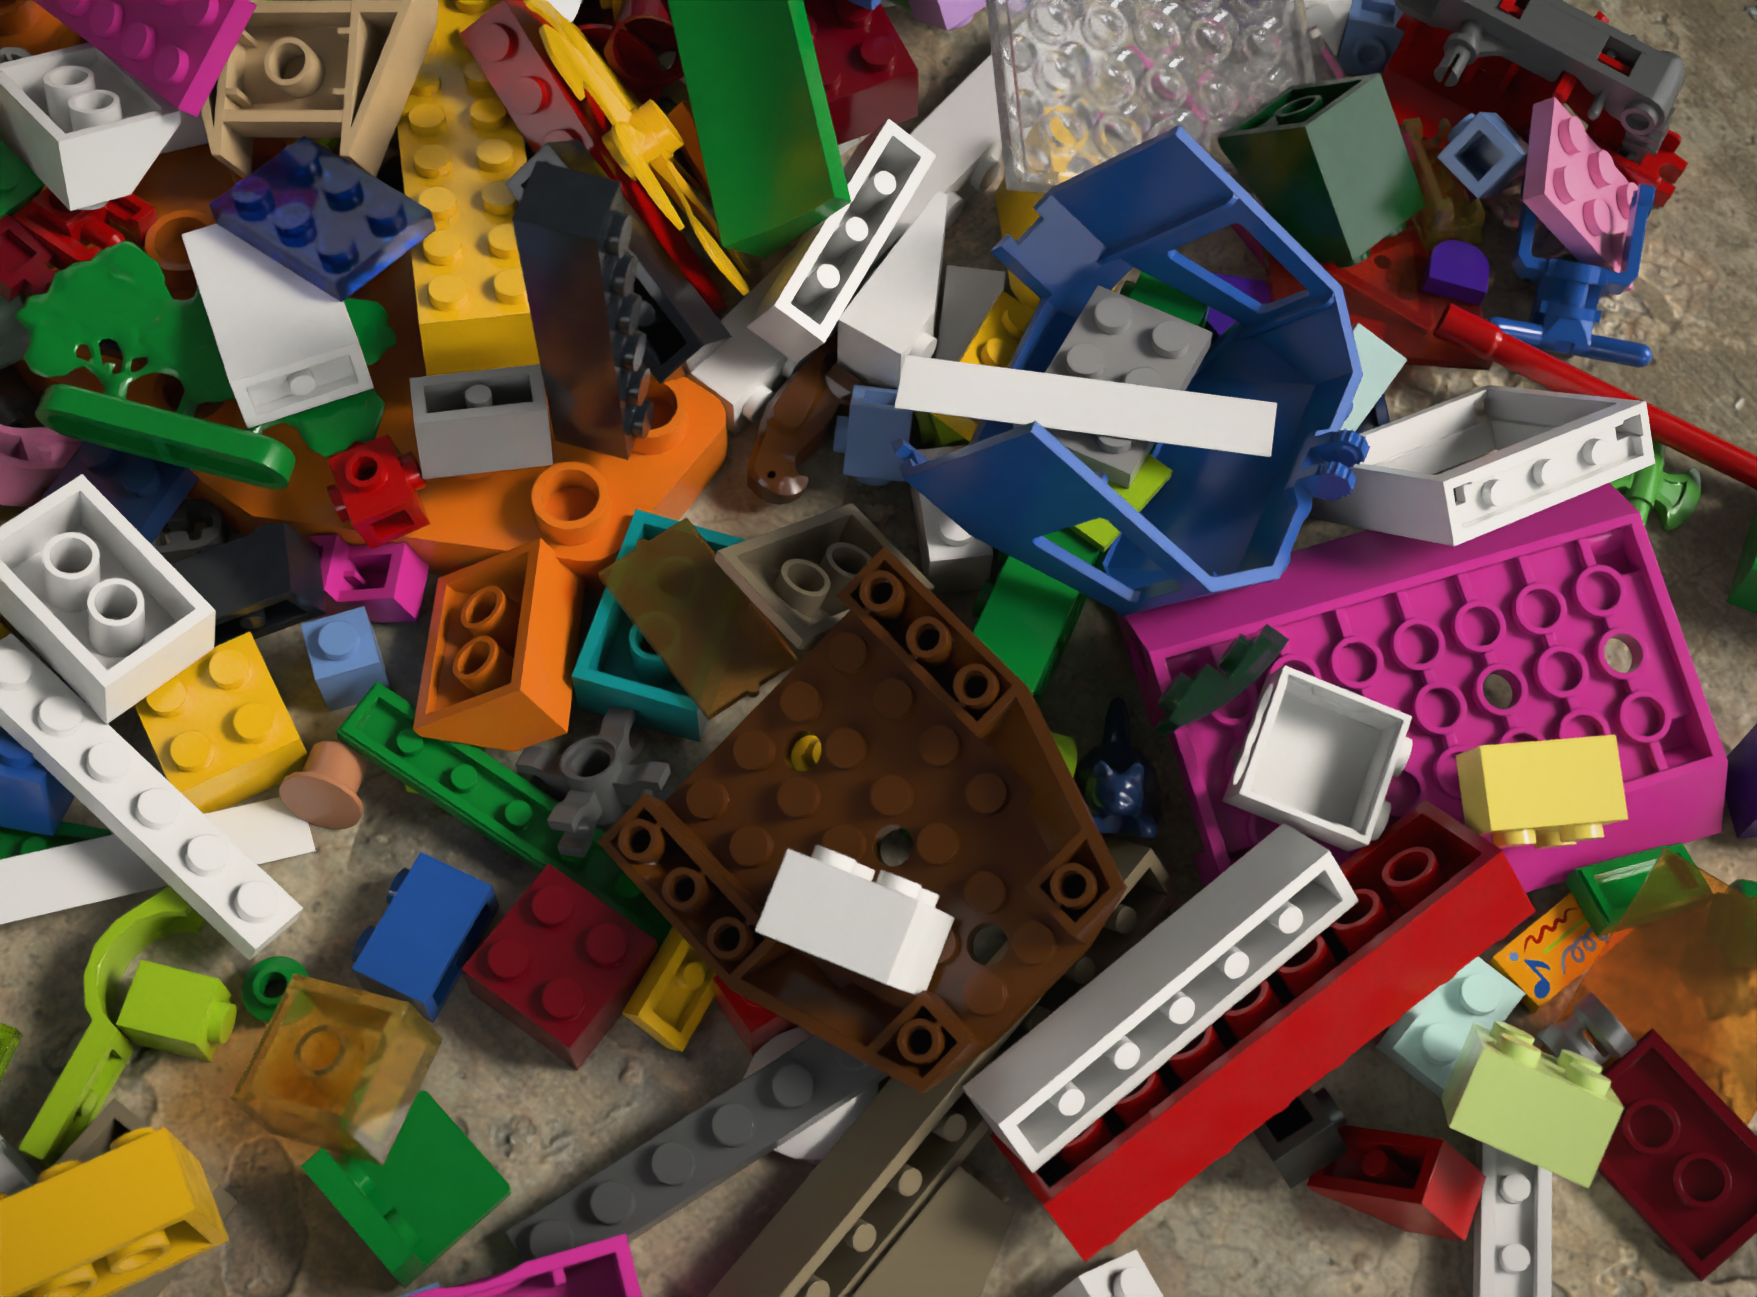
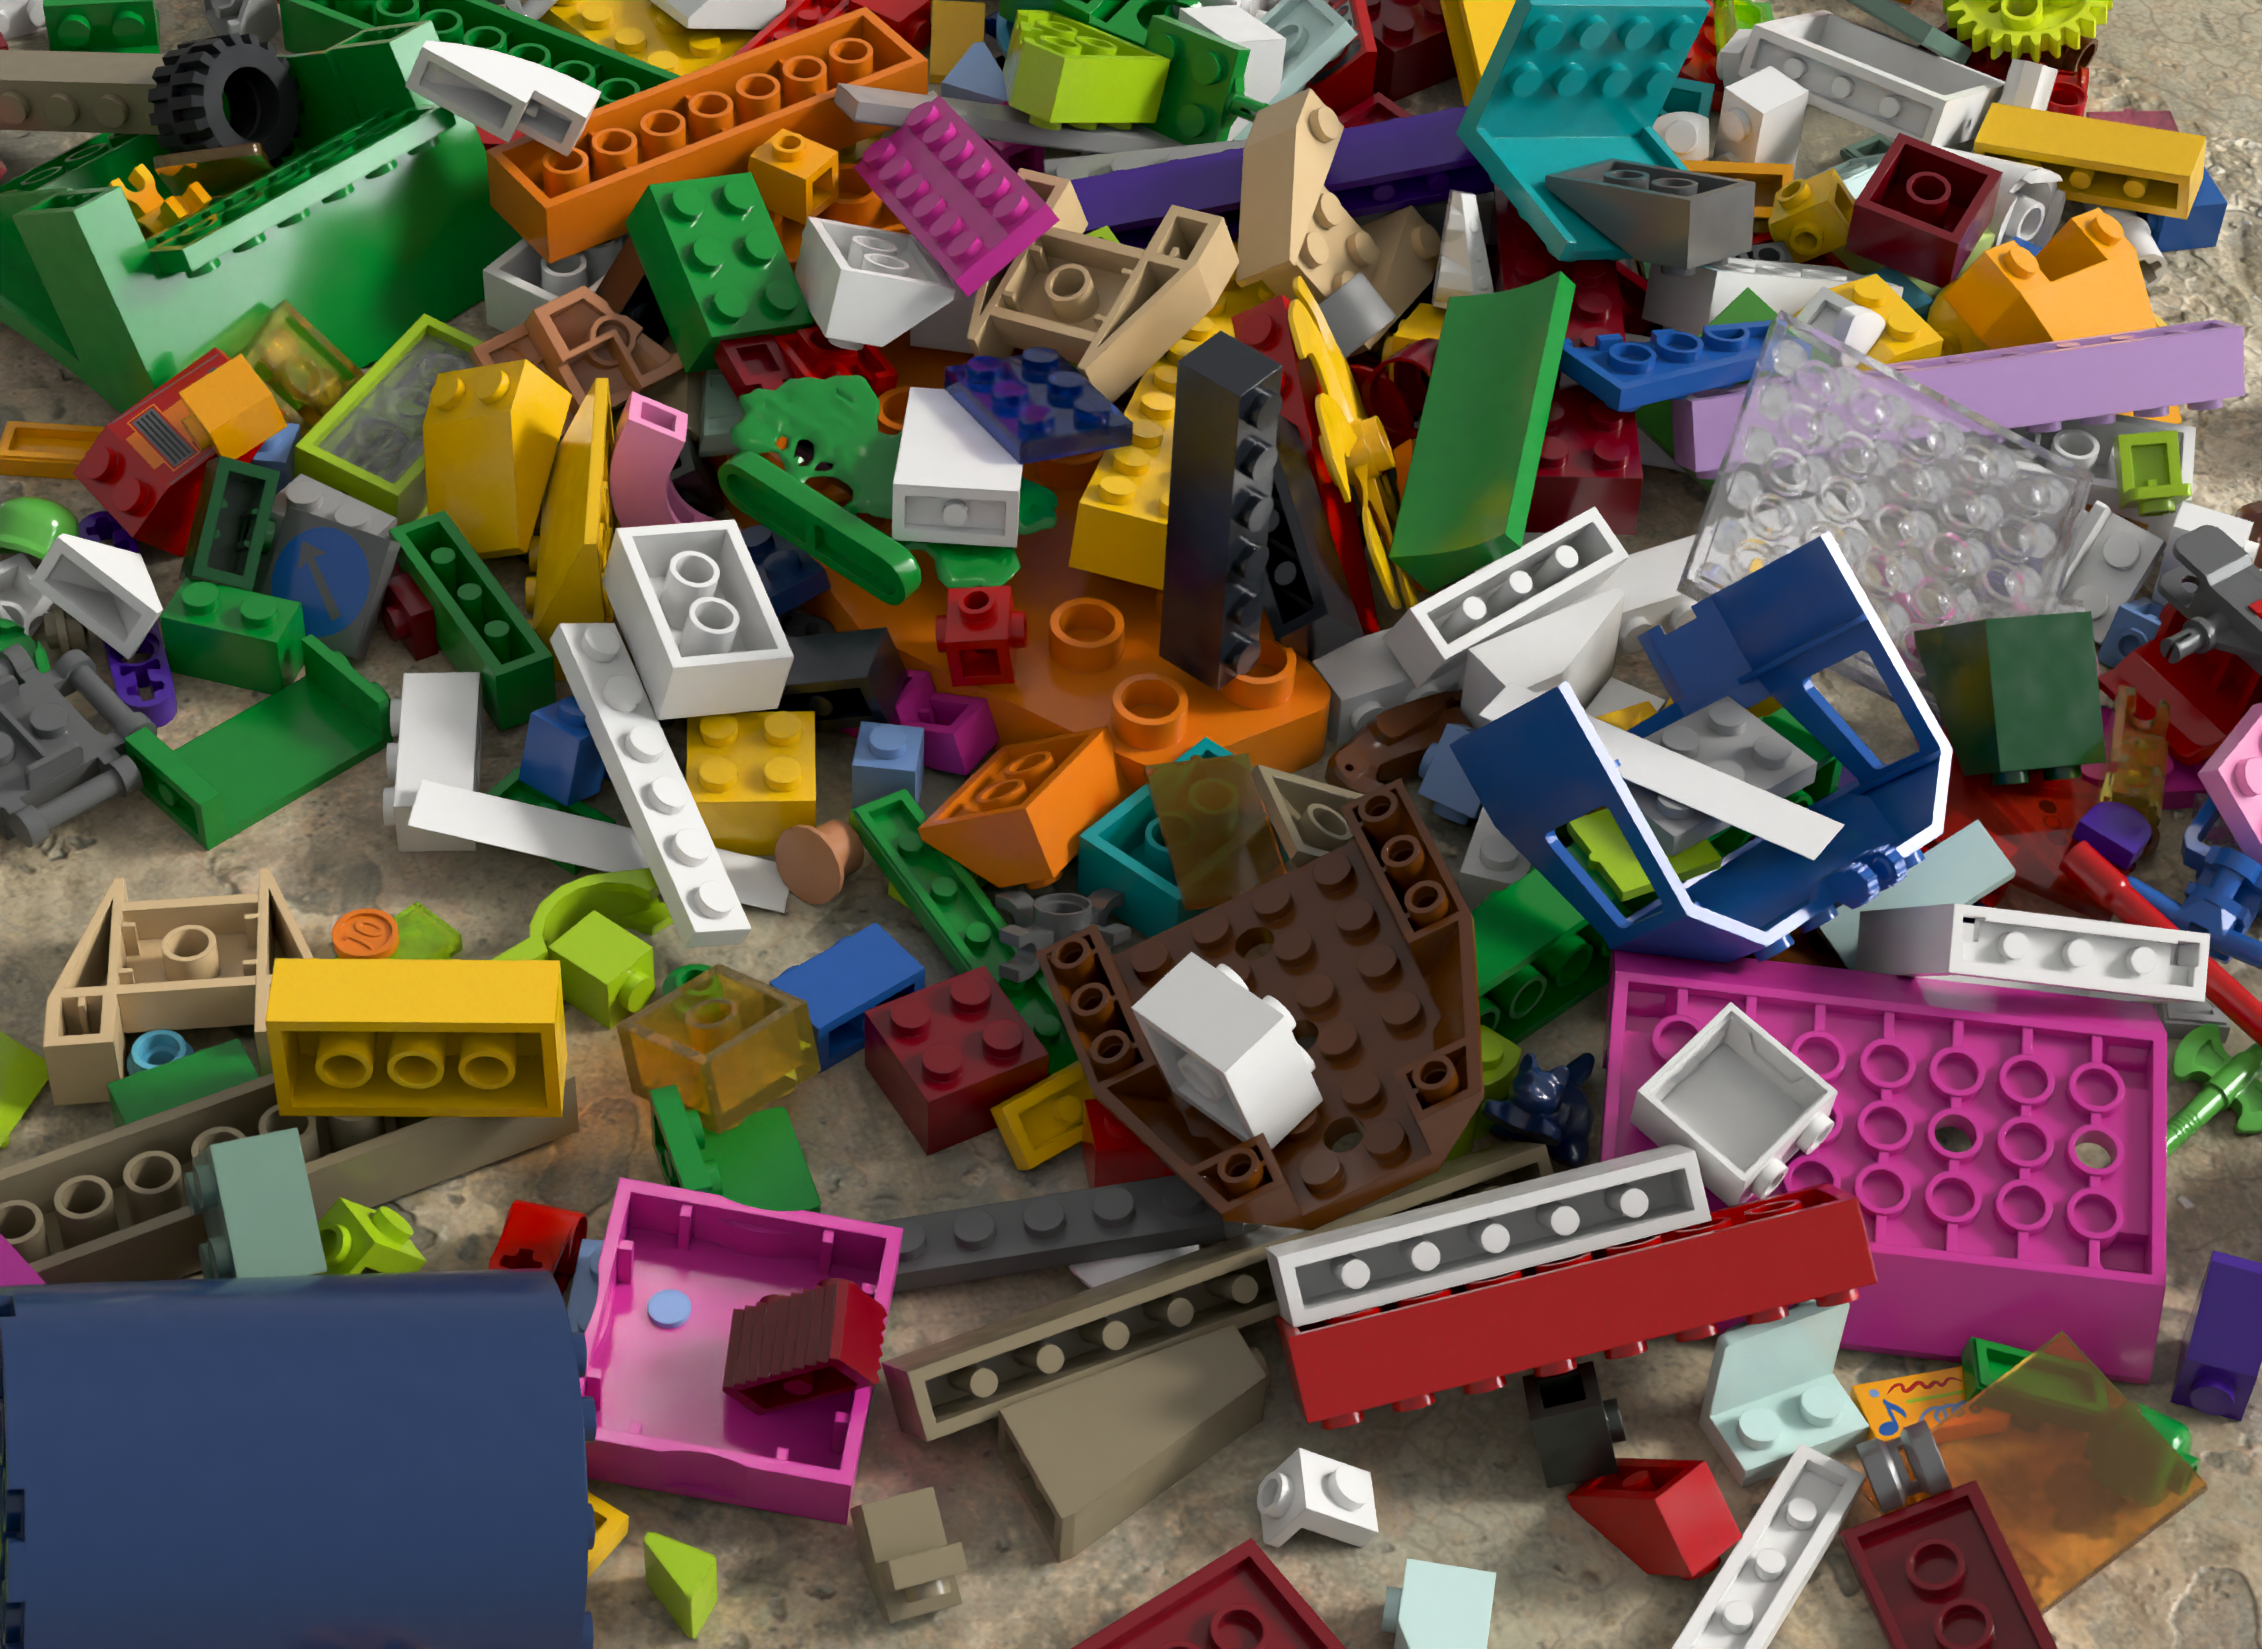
camera: 25 degrees right, 20 degrees down
(481, 421) = (1096, 604): light grey brick -> none
(1207, 689) = (1653, 1014): clear green slope -> none
(1484, 153) = (2183, 735): medium blue brick -> none
(1531, 1103) = (1803, 1455): yellowish green brick -> none
(1542, 791) = (1938, 1189): light yellow brick -> none

